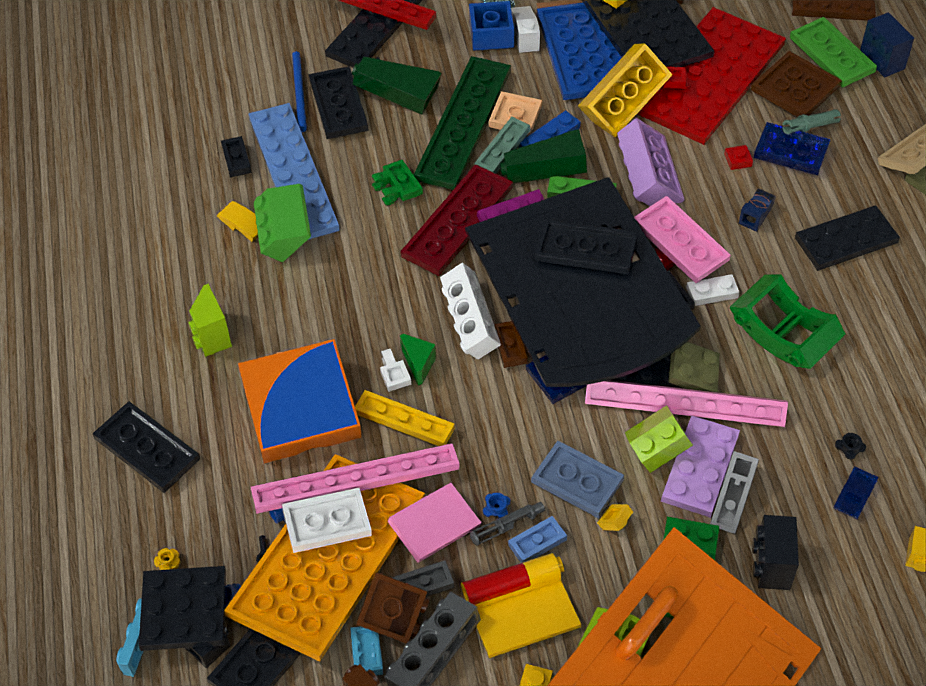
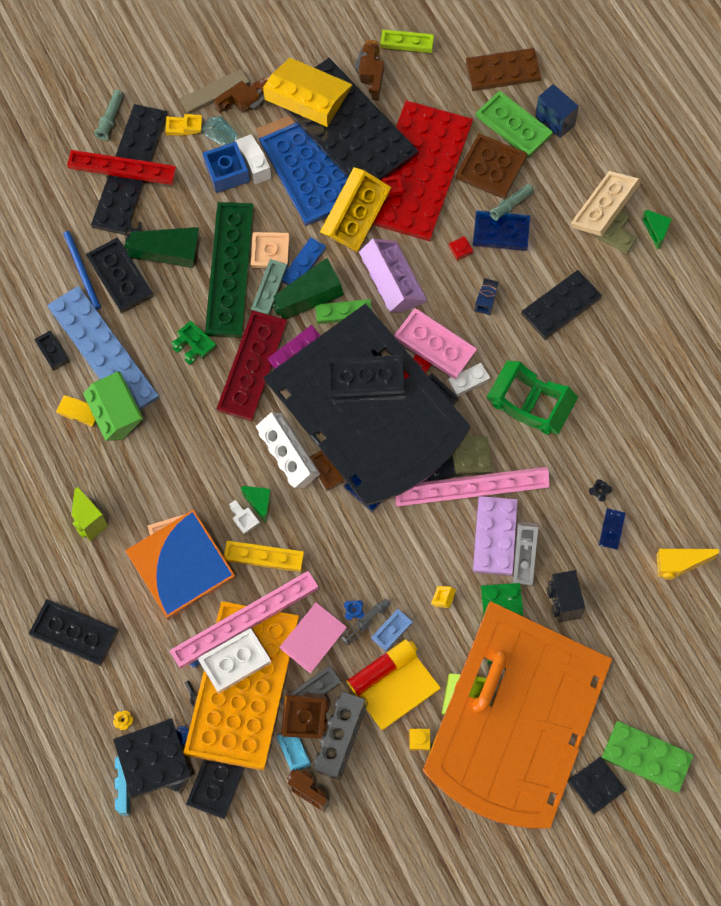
camera: 15 degrees left, 15 degrees up
(577, 479) = (407, 572): sand blue plate -> none
(658, 439) = (458, 524): lime slope -> none

